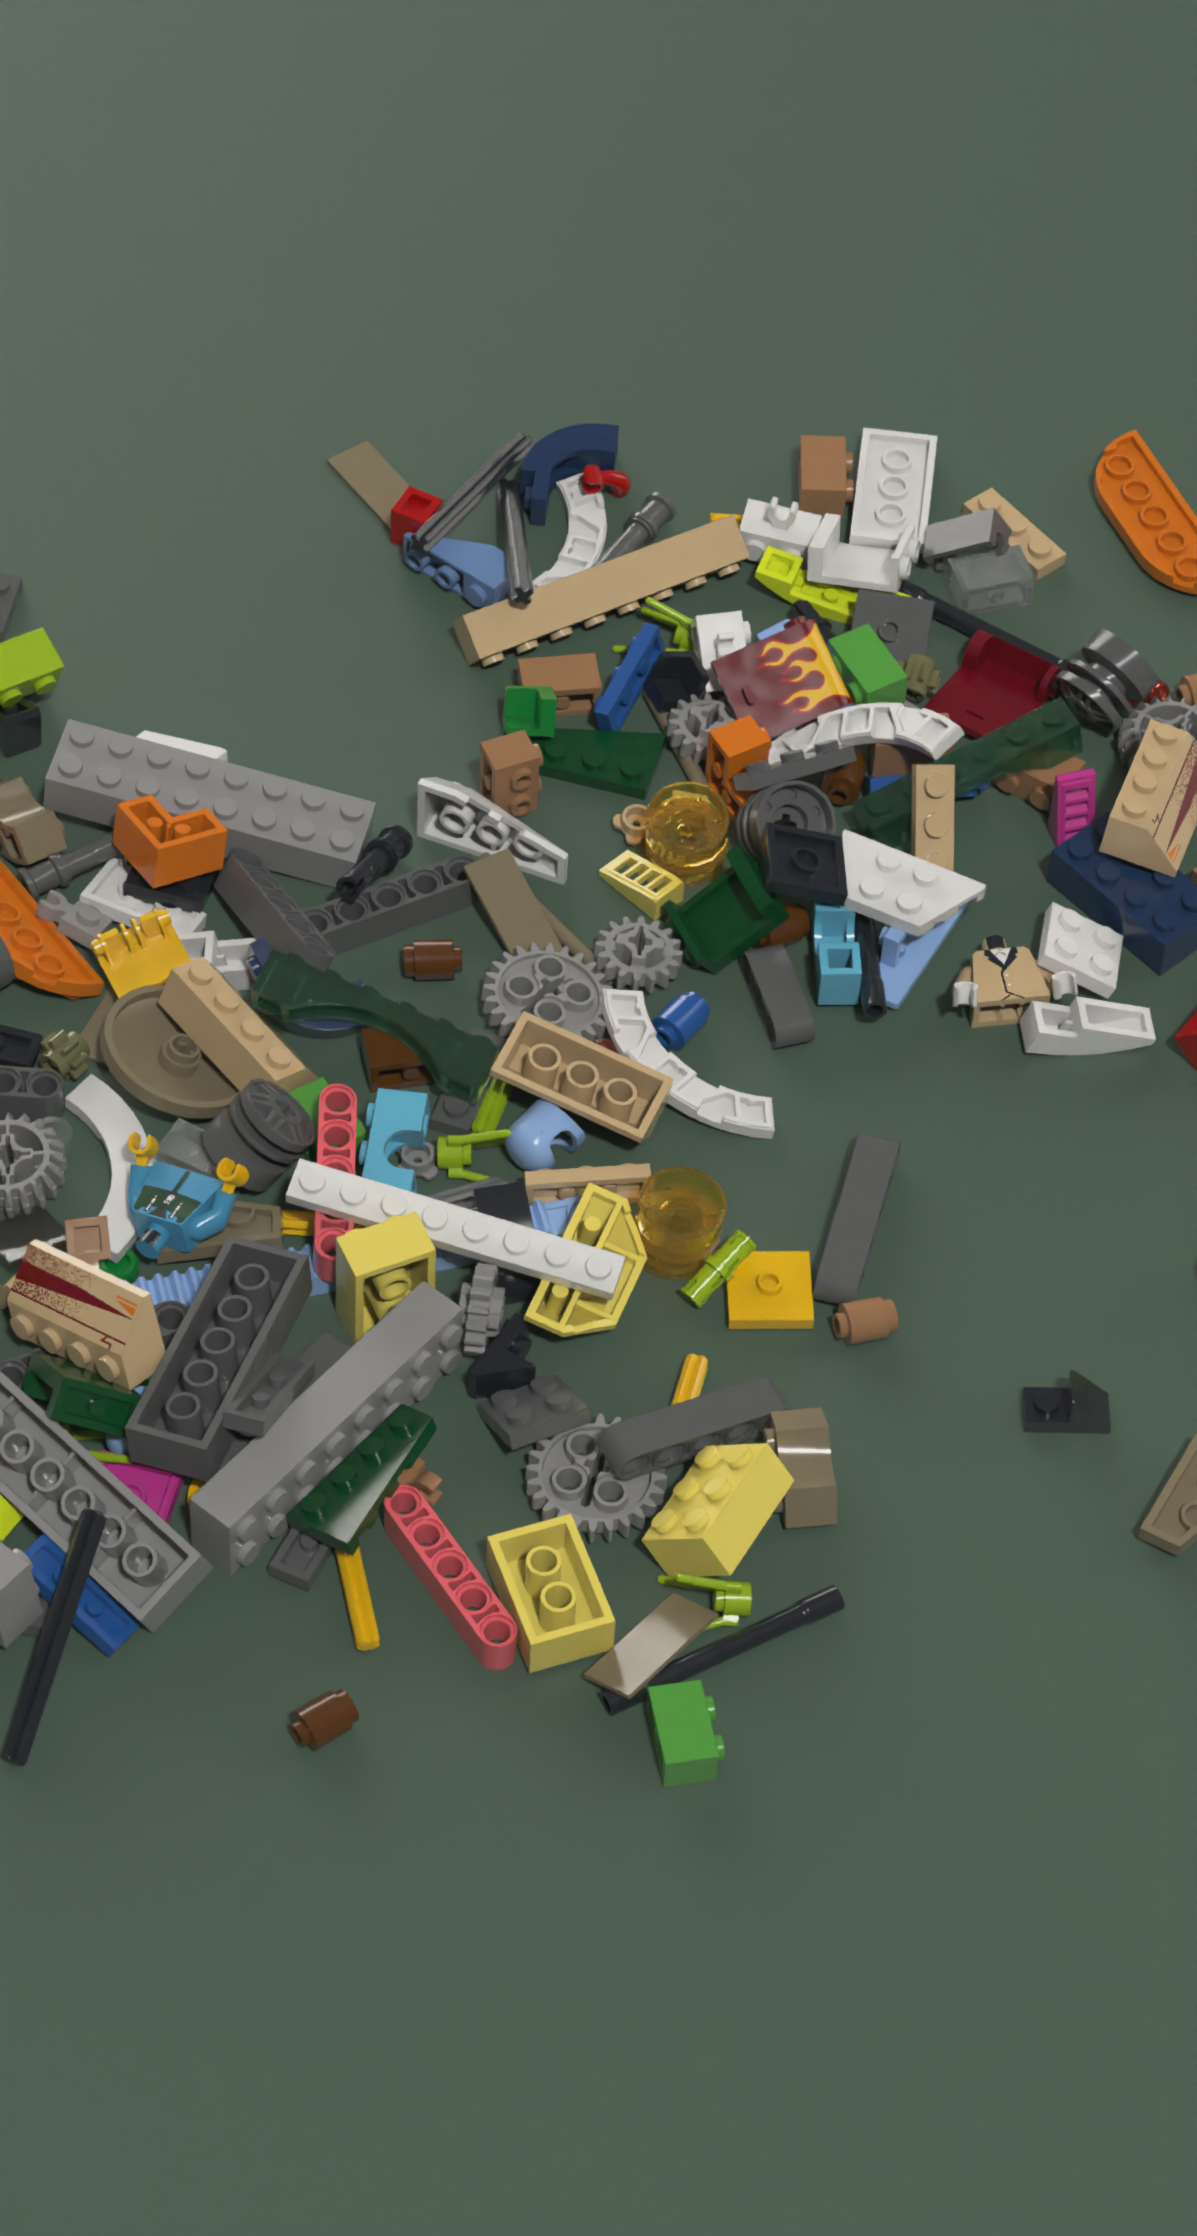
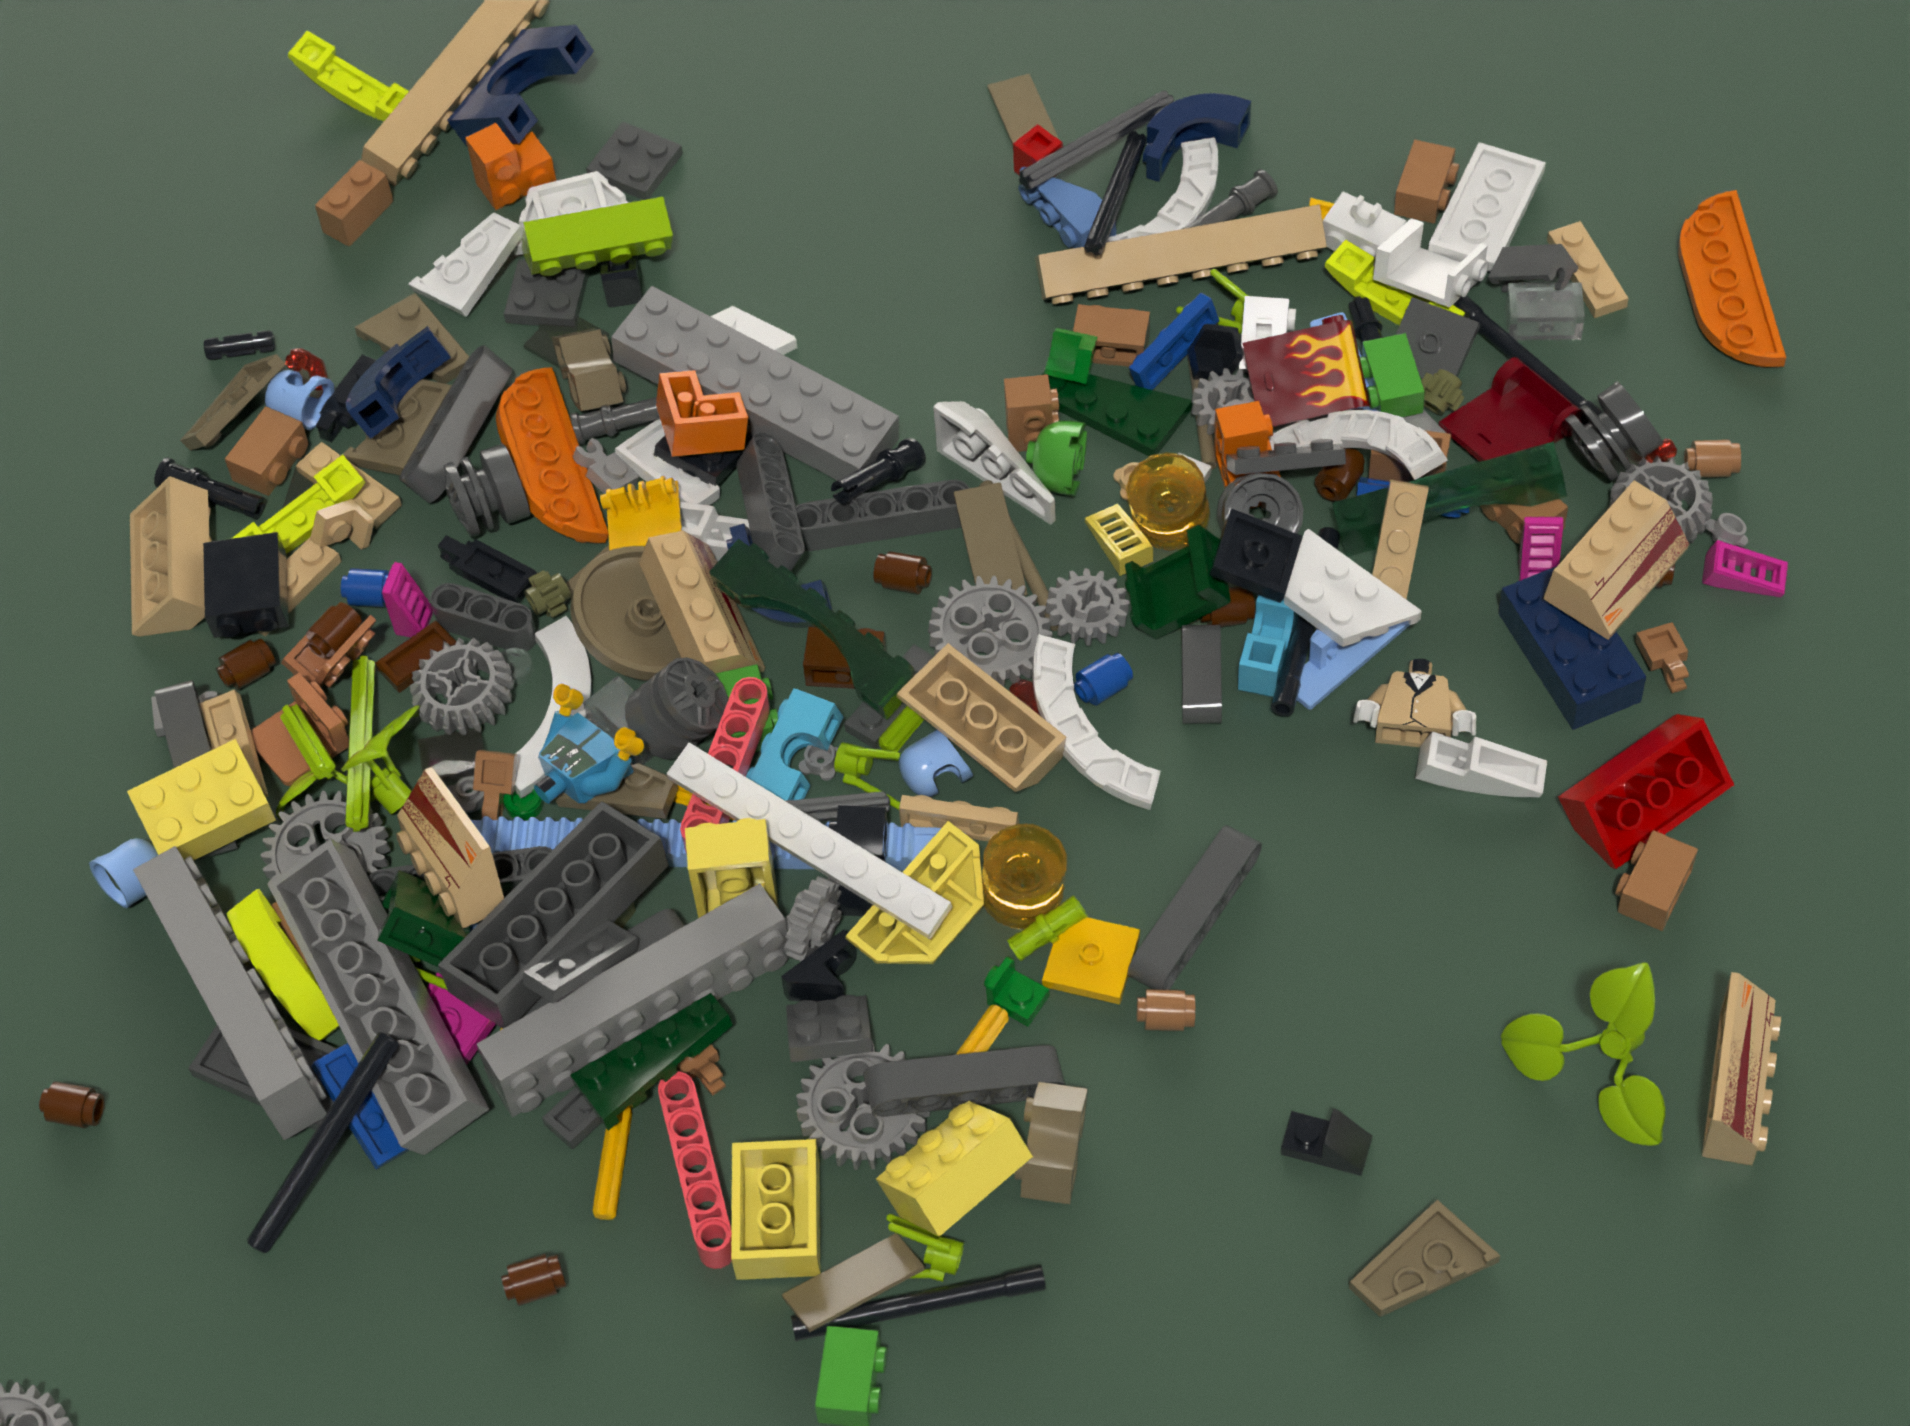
camera: 25 degrees right, 5 degrees up
(556, 810) = (1059, 455): none -> bright green cylinder
(595, 479) = (1213, 147): red arm -> none
(706, 1338) = (1015, 992): none -> green bracket
(1081, 947) = (1499, 690): white plate -> none

